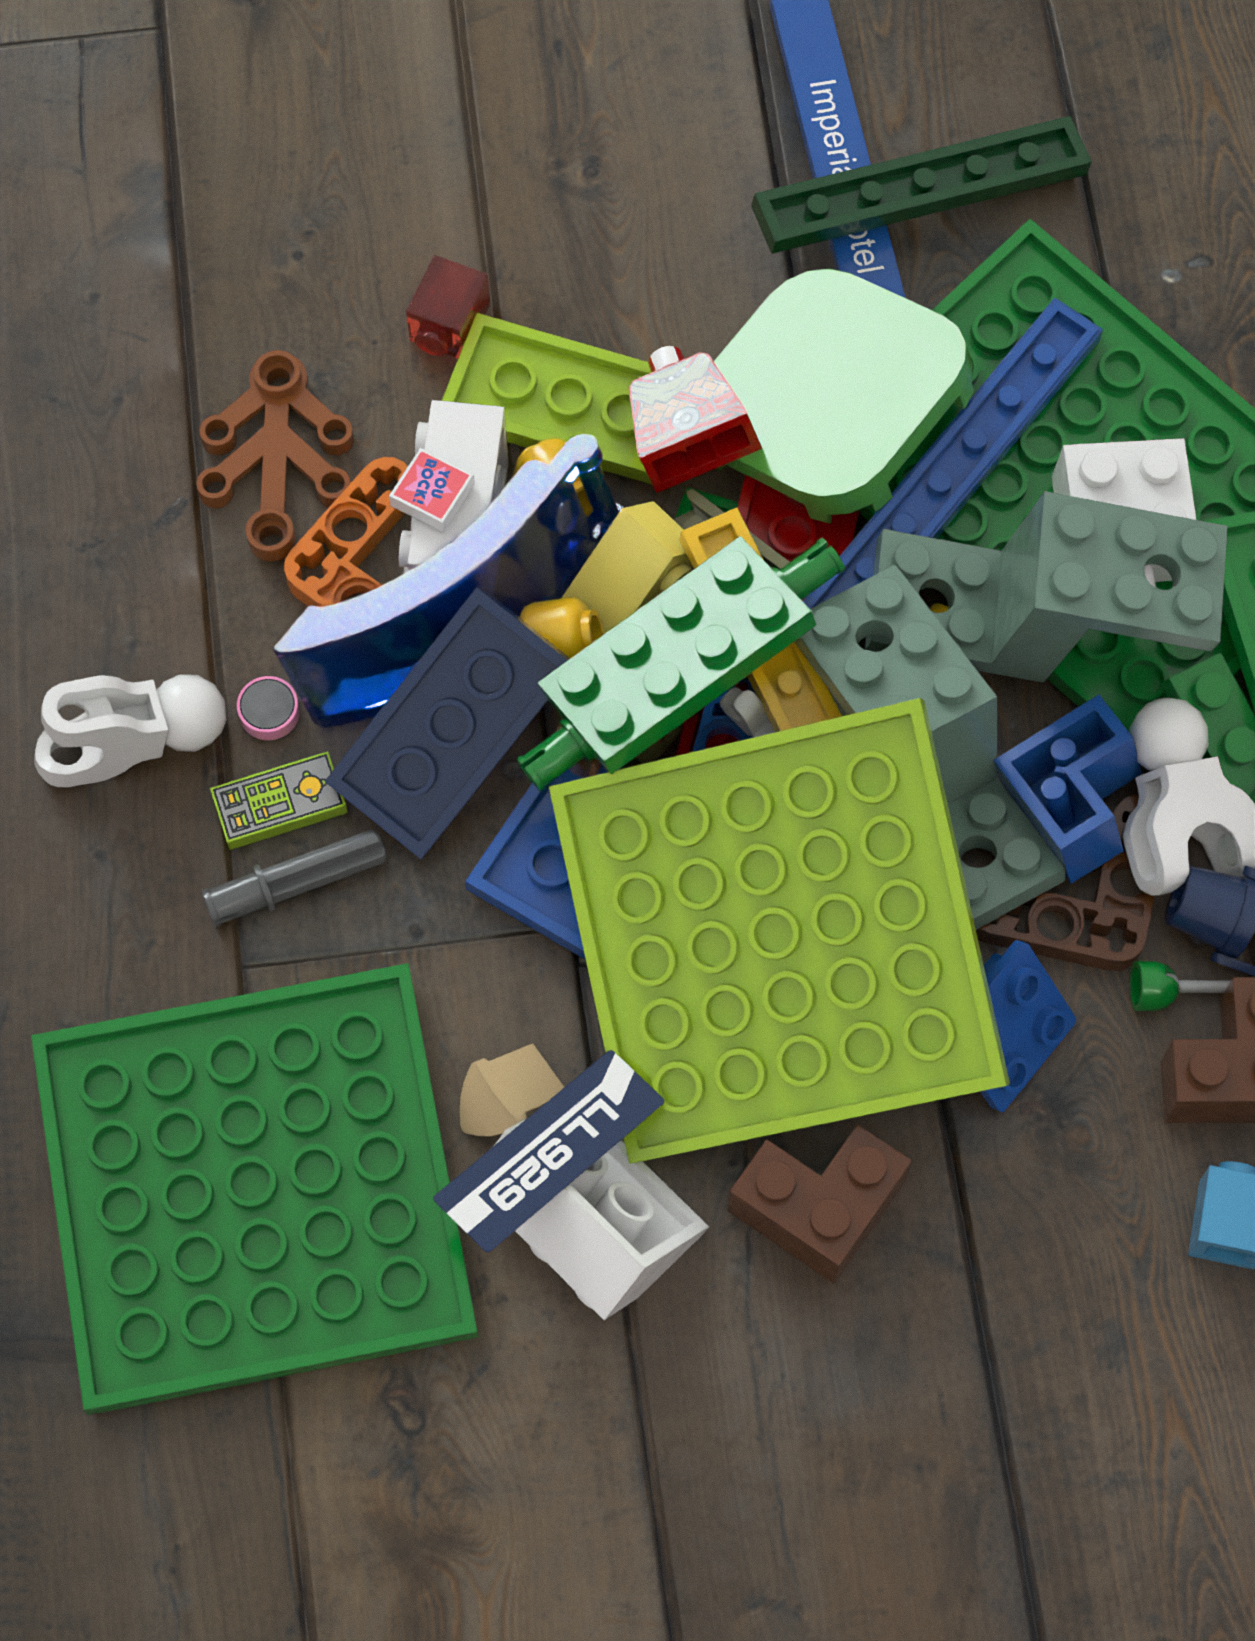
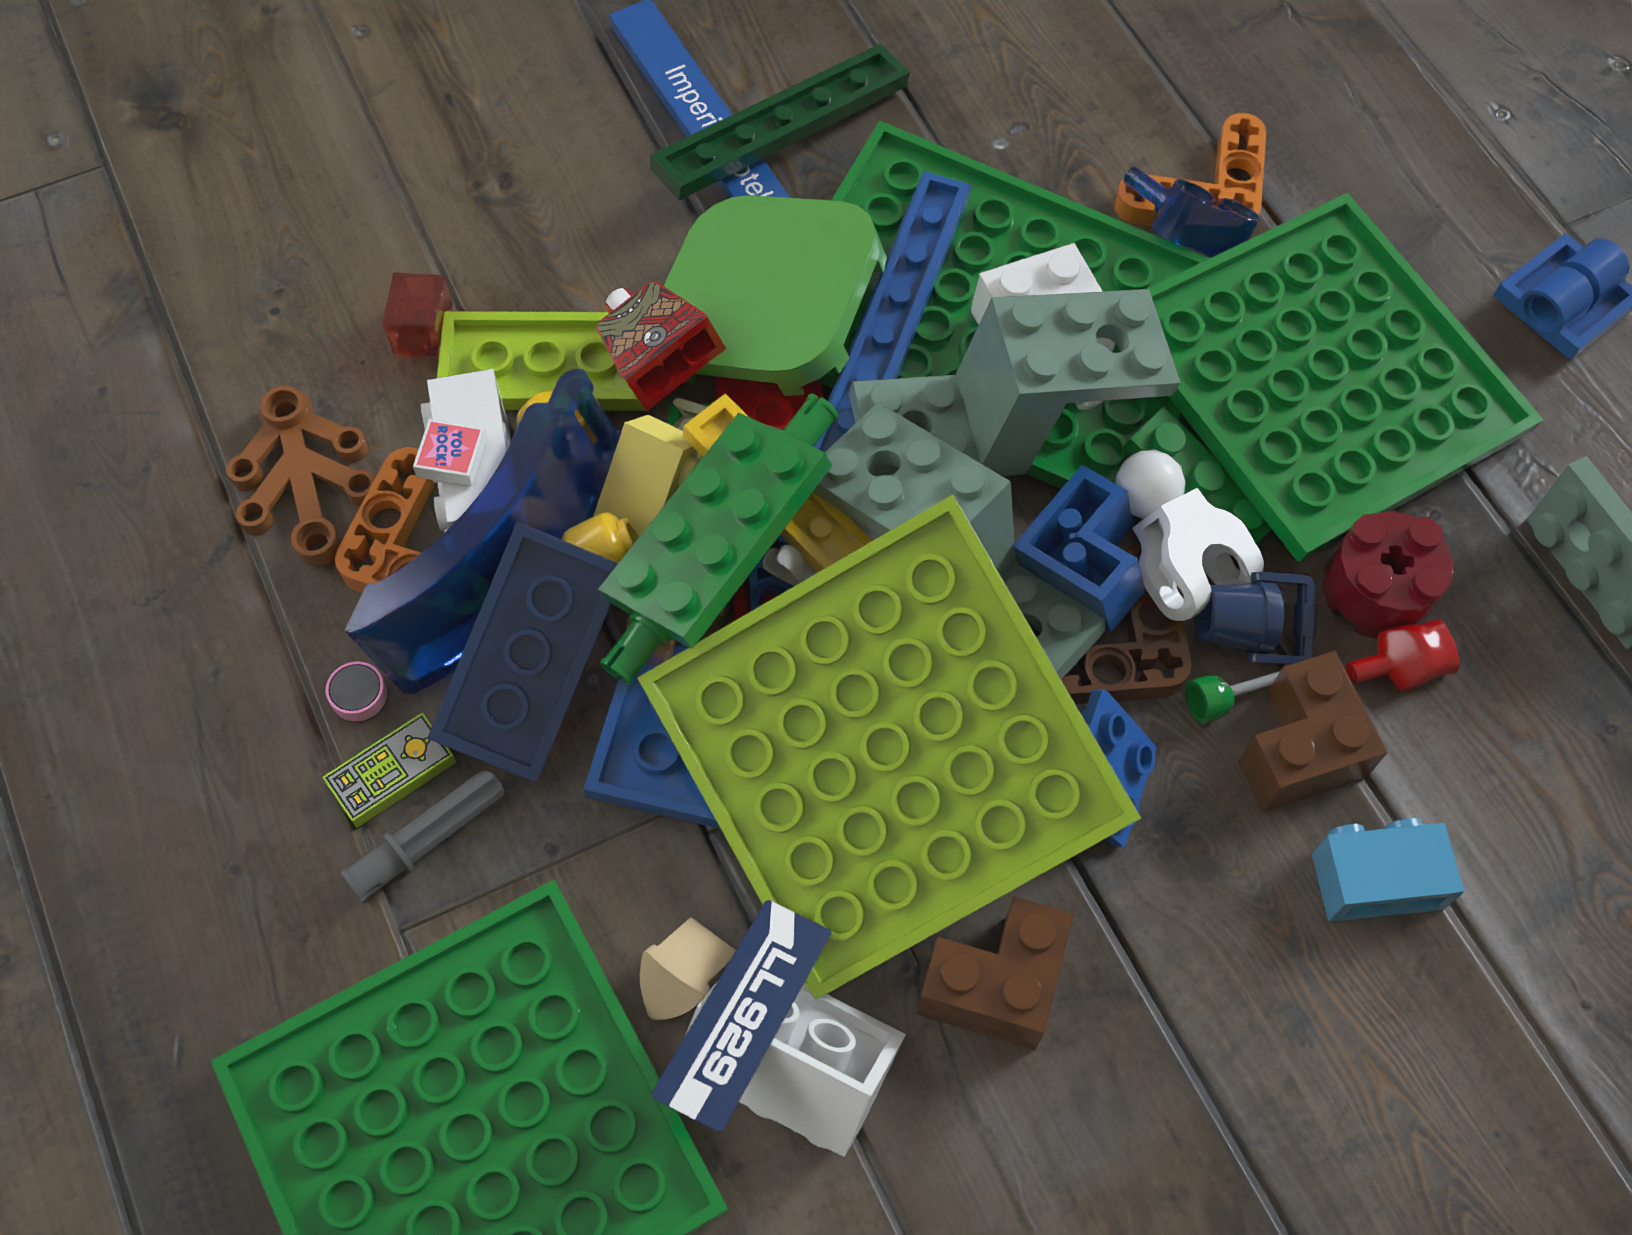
camera: 20 degrees left, 5 degrees down
(125, 724) = (222, 743): white piece -> none

